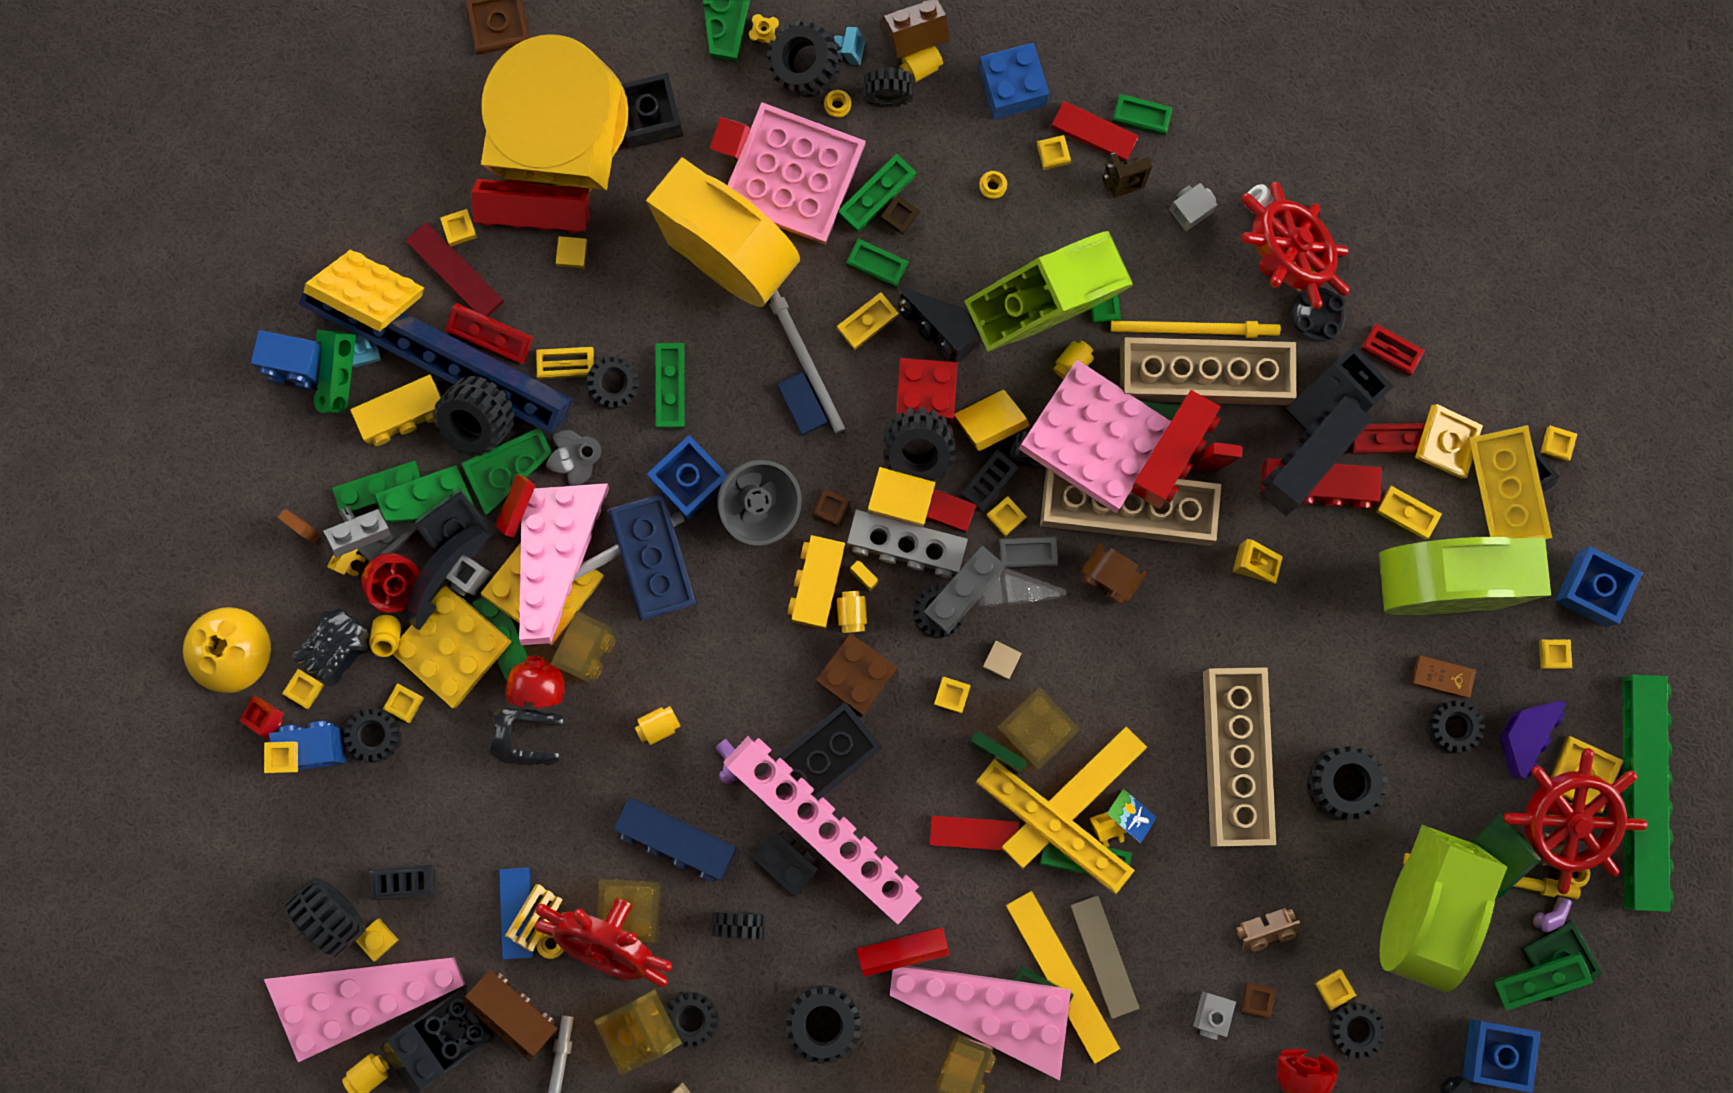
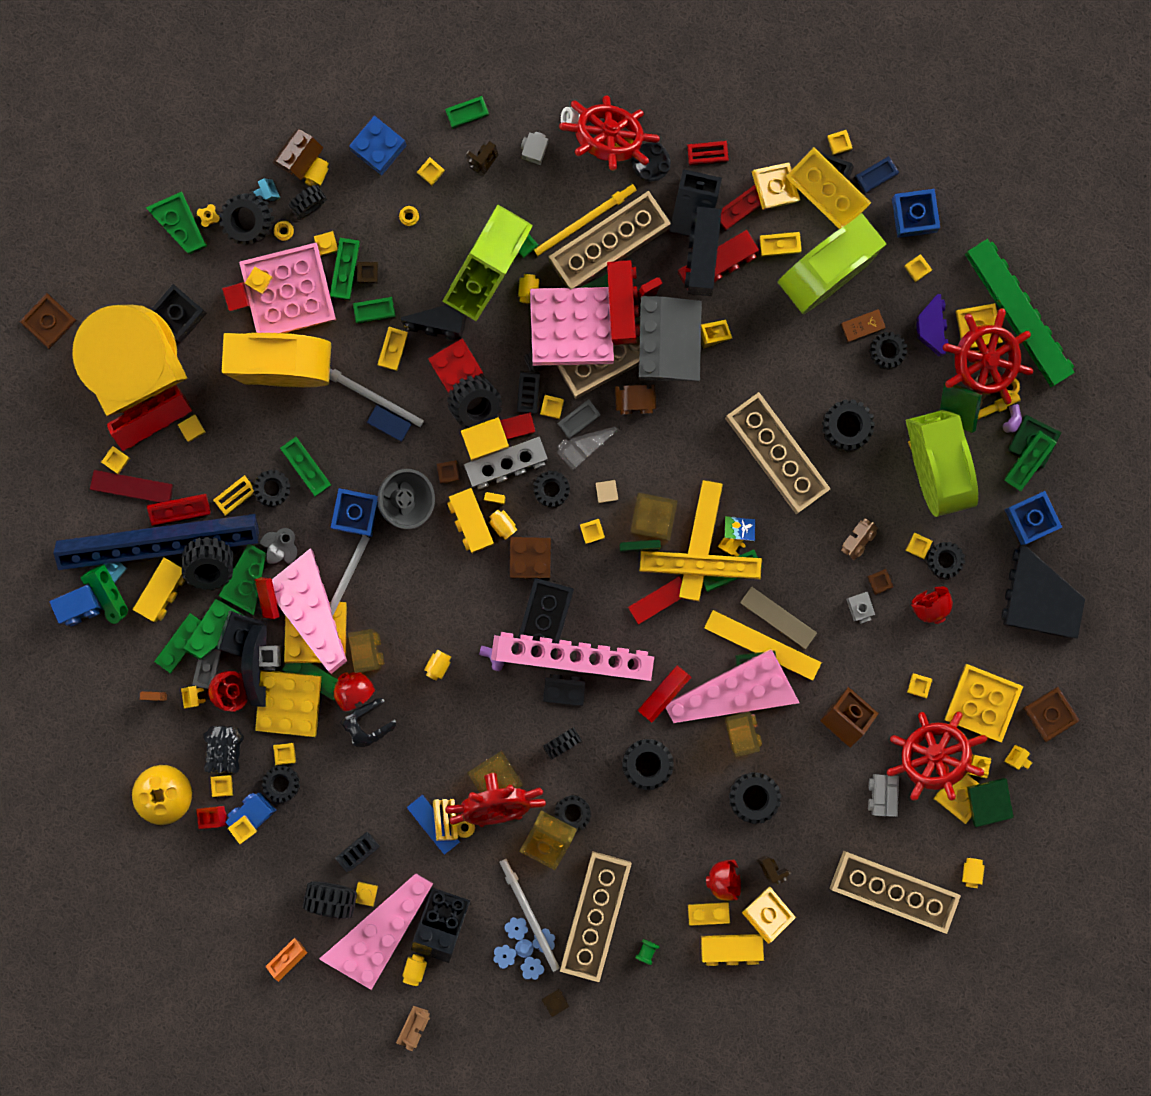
camera: 30 degrees left, 5 degrees up
(225, 952) = (286, 959): none -> orange plate
(356, 531) = (188, 676): plate -> none
(364, 290) = (90, 535): yellow plate -> none
(385, 635) = (247, 723): yellow brick -> none
(510, 1014) = (470, 881): reddish brown brick -> none
(651, 556) = (366, 572): dark blue tile -> none
(674, 838) = (493, 720): dark blue brick -> none
(768, 137) = (258, 280): none -> yellow plate
(876, 151) = (326, 243): none -> yellow plate
(965, 589) = (558, 467): dark grey brick -> none
(991, 420) = (505, 357): yellow tile -> none
(1094, 131) = (446, 142): red tile -> none
(1203, 530) = (670, 339): none -> dark grey slope
(1578, 511) = (876, 174): none -> dark blue tile

